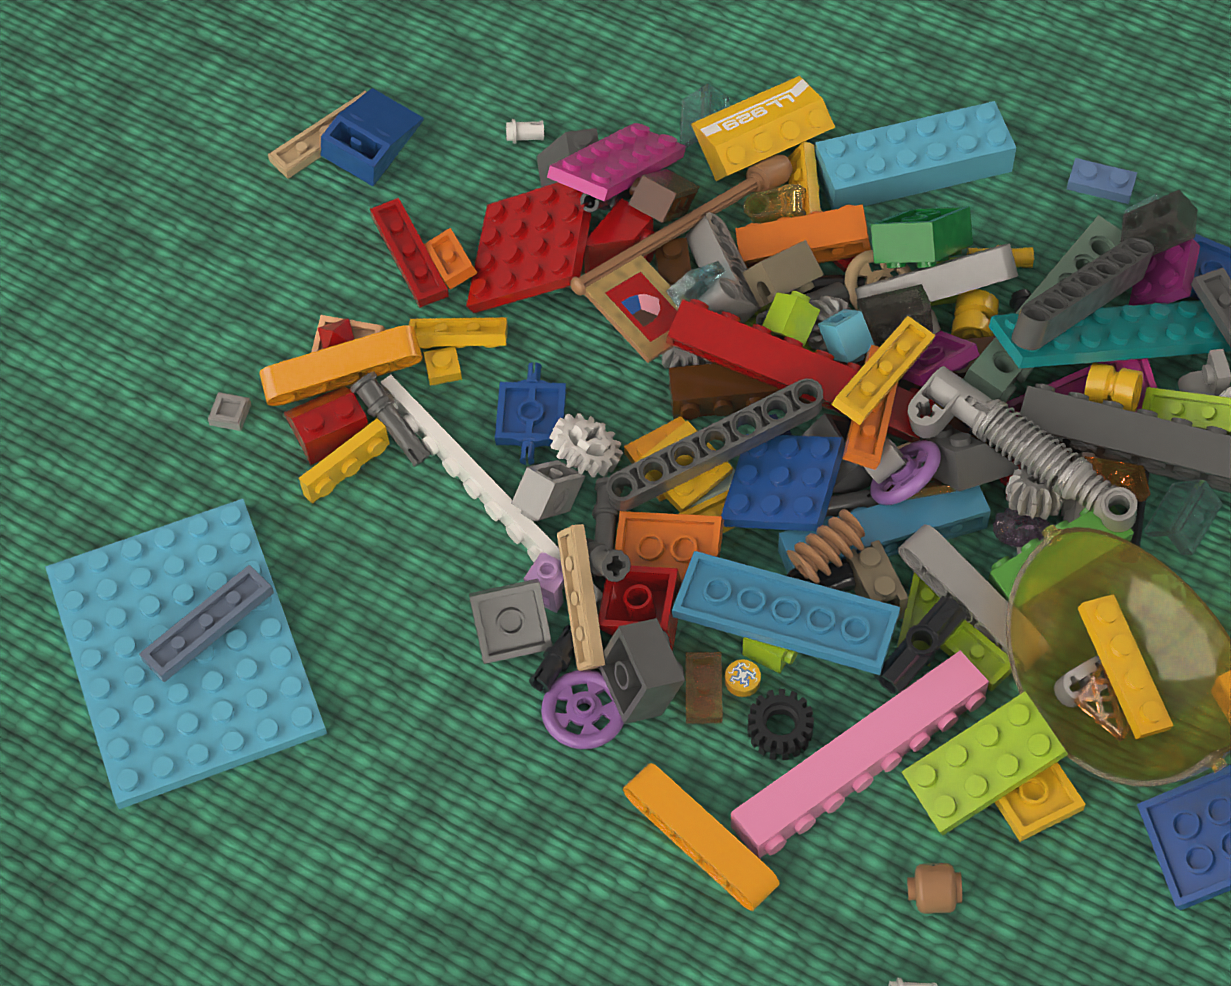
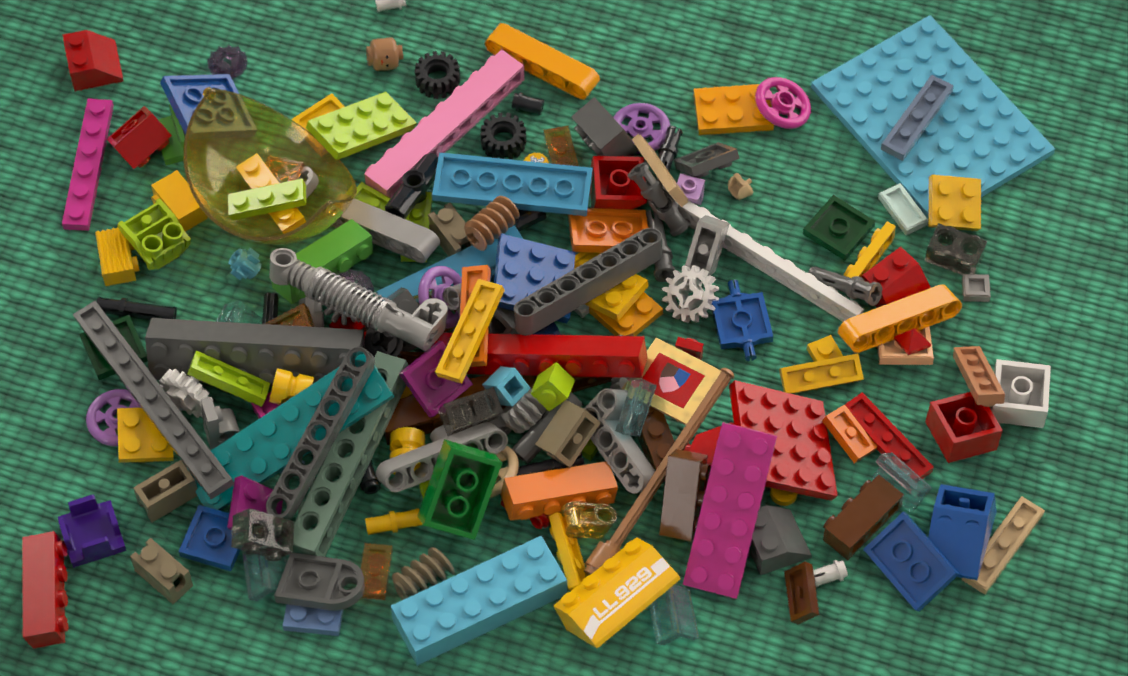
camera: 165 degrees right, 0 degrees up
(209, 504) = (955, 202): none -> yellow plate
(238, 446) = (953, 255): none -> clear smoke brick
(239, 262) = (1025, 393): none -> white brick
(275, 528) = (903, 209): none -> light aqua tile
(279, 272) = (979, 375): none -> nougat plate
(318, 237) = (963, 427): none -> red brick
(367, 510) = (839, 227): none -> dark green plate
(376, 696) = (783, 102): none -> dark pink plate
(411, 194) = (903, 479): none -> clear light blue panel
(434, 117) = (911, 561): none -> blue plate
(446, 713) = (729, 110): none -> light orange plate
(467, 174) = (862, 516): none -> reddish brown brick
(472, 583) = (738, 187): none -> tan piece
(560, 110) = (801, 593): none -> reddish brown plate
(607, 385) = (690, 346): none -> red plate
(735, 772) = (527, 103): none -> black pin
(862, 824) = (437, 63): none -> black tyre
(975, 187) = (421, 573): none -> dark tan piece
(1027, 209) = (376, 570): none -> clear orange plate
(1090, 192) = (319, 582): none -> dark grey plate
(1132, 635) = (267, 199): none -> lime plate
(1170, 952) = (218, 66): none -> clear purple gear

